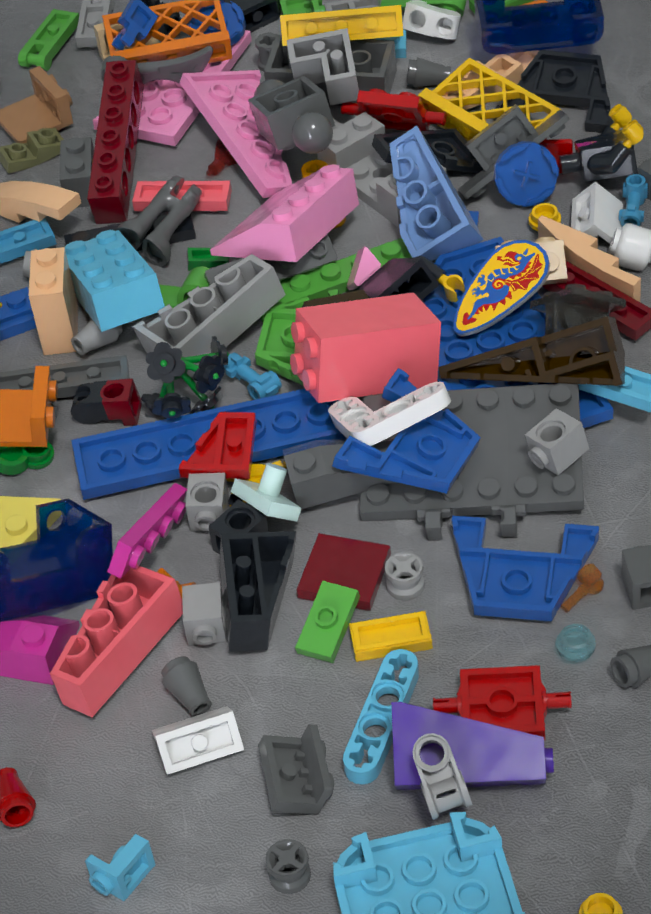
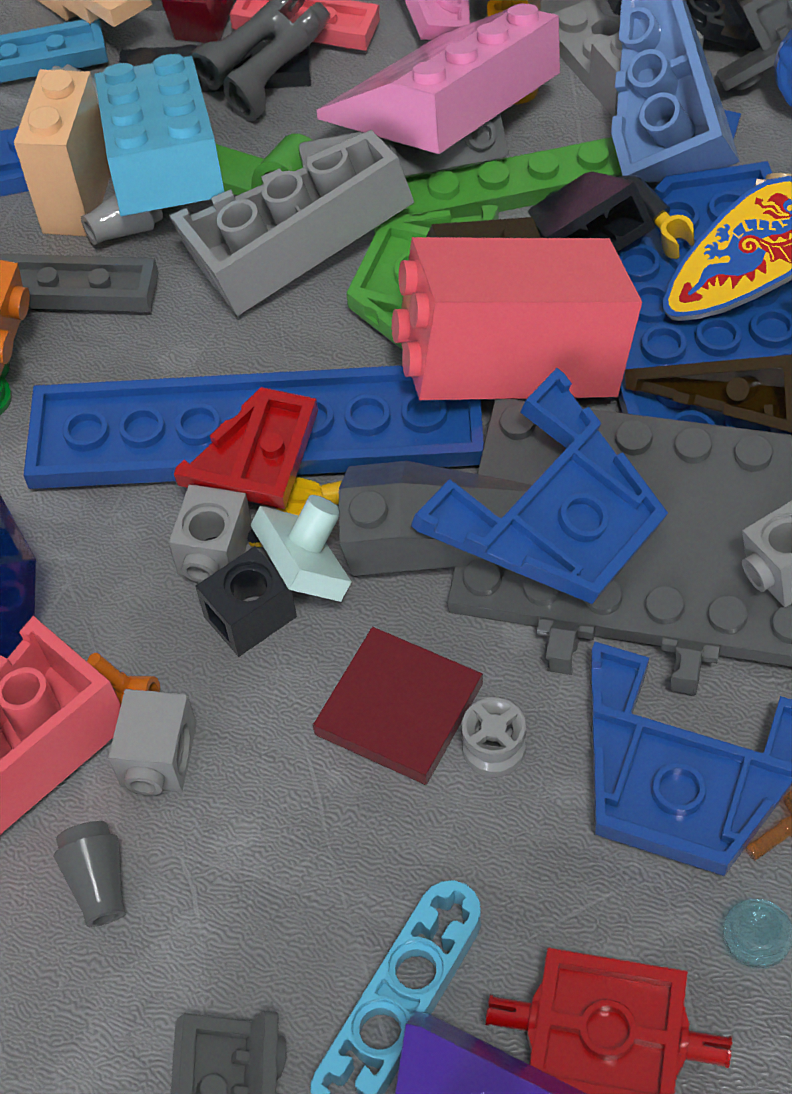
camera: 10 degrees right, 10 degrees up
(107, 402) = (107, 330): leg -> none
(147, 530) = (86, 585): dark pink plate -> none
(171, 365) = (198, 293): black plant -> none
(198, 739) = (81, 979): white panel -> none
(202, 257) = (304, 121): green piece -> none
(253, 584) = (241, 709): black wedge -> none
(259, 385) = (345, 346): dark azure bar -> none
(327, 621) = (348, 798): bright green plate -> none
(363, 267) = (543, 179): bright pink slope -> none
(371, 427) = (499, 468): white beam -> none
(380, 636) = (447, 844): yellow tile -> none

